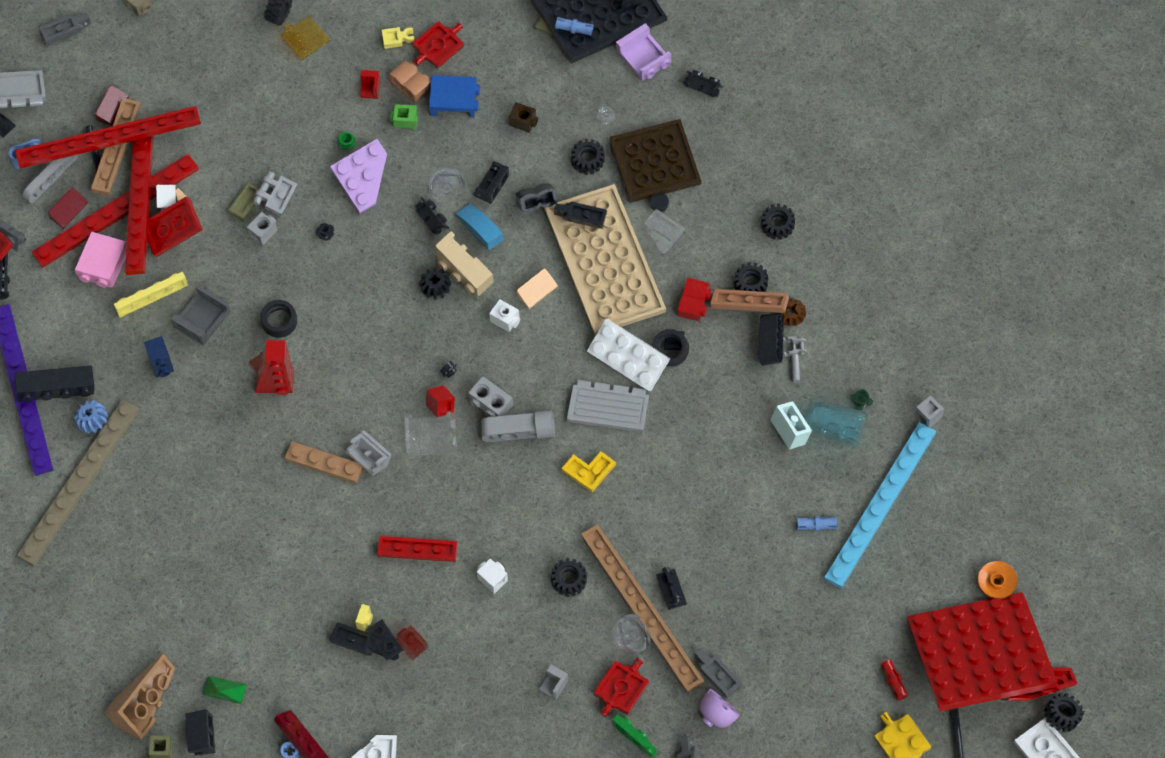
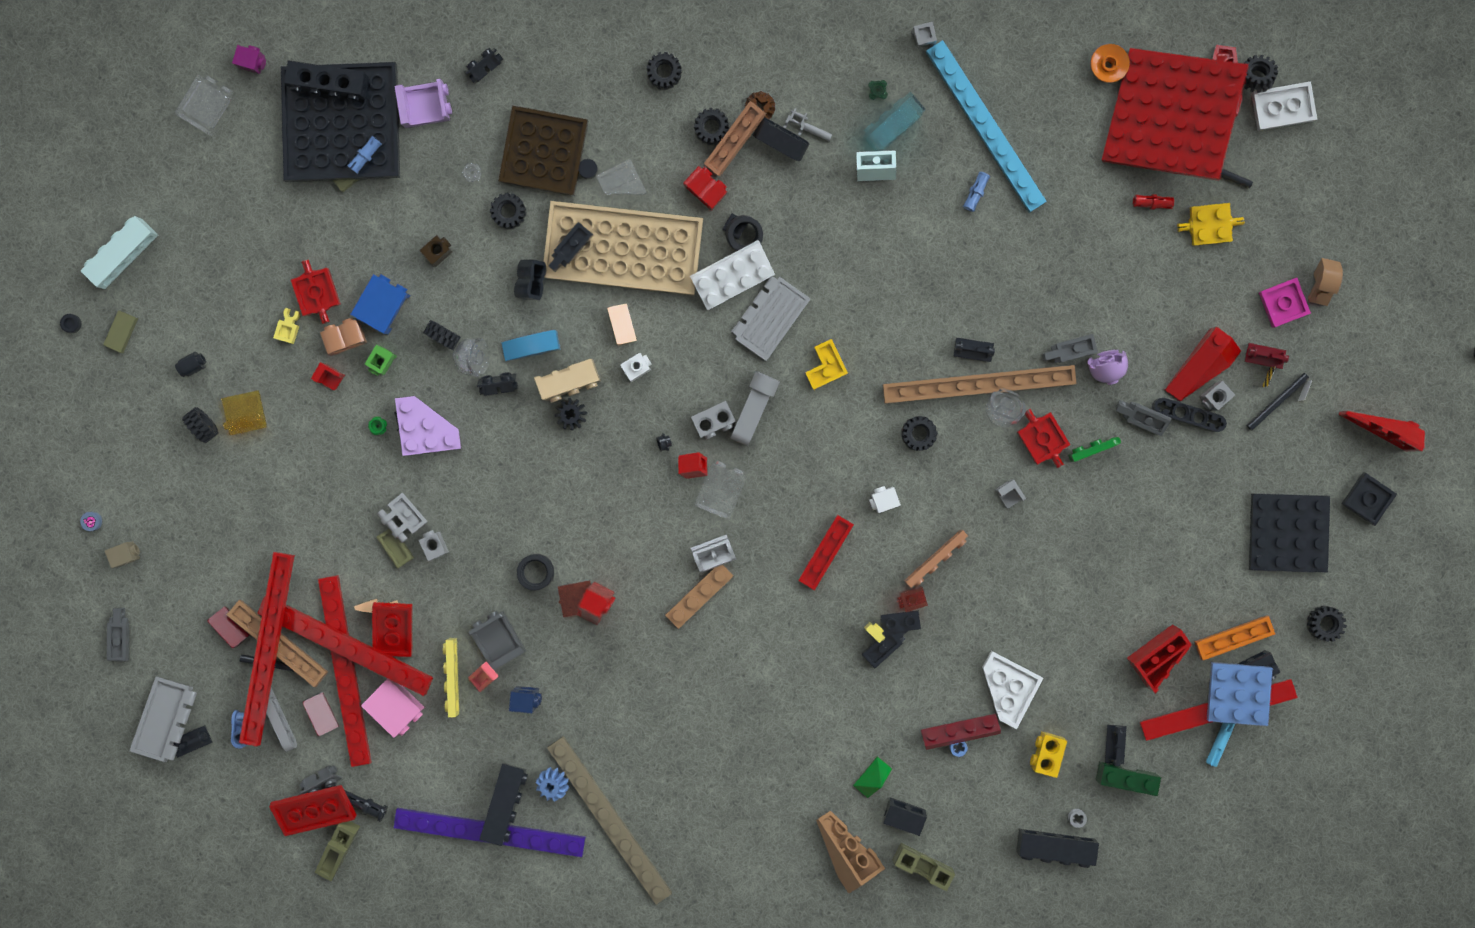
camera: 70 degrees left, 25 degrees up
(163, 316) = (483, 676): none -> coral plate
(165, 196) = (356, 620): white brick -> none
(325, 235) = (469, 488): black plate -> none
(451, 150) = (441, 335): none -> black tyre
(466, 648) = (942, 553): none -> nougat plate
(492, 182) = (490, 312): black hinge -> none

